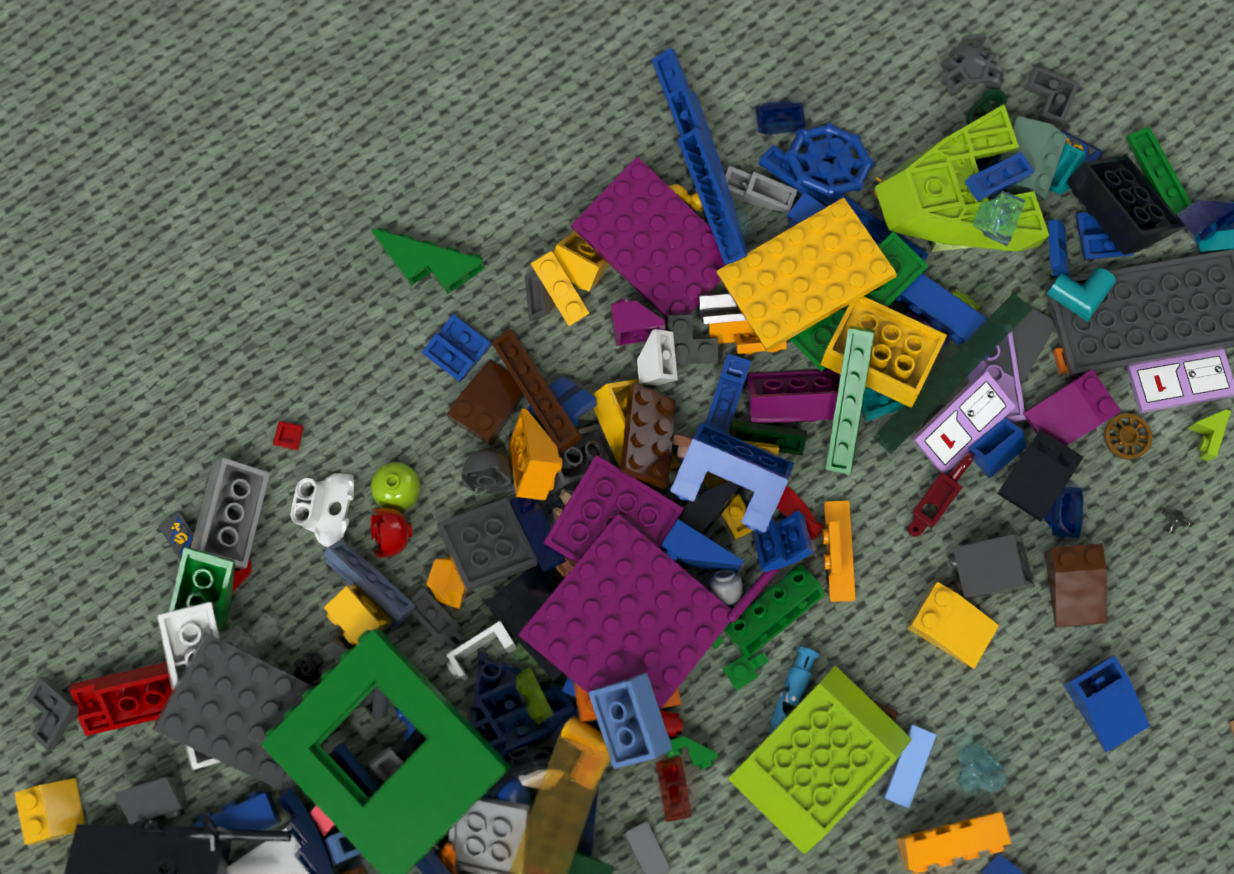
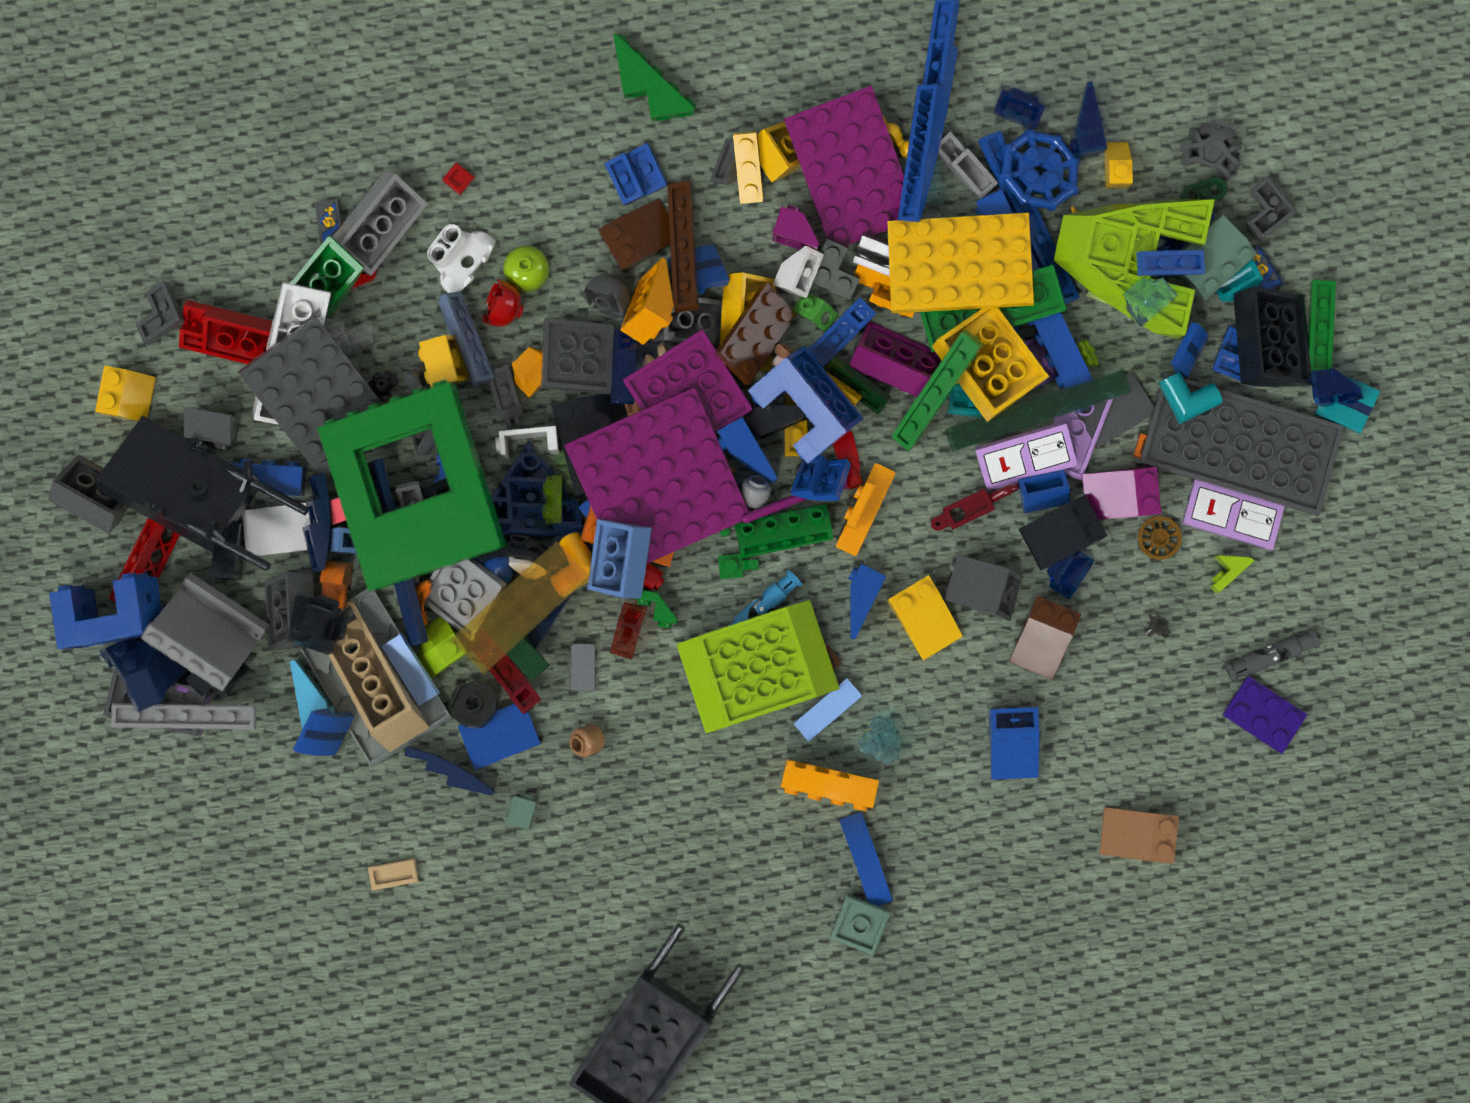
camera: 20 degrees right, 10 degrees up
(690, 388) = (813, 309): none -> bright green bracket
(853, 106) = (1088, 130): none -> clear blue slope
(881, 630) = (863, 592): none -> blue slope
(897, 123) = (1118, 166): none -> yellow slope

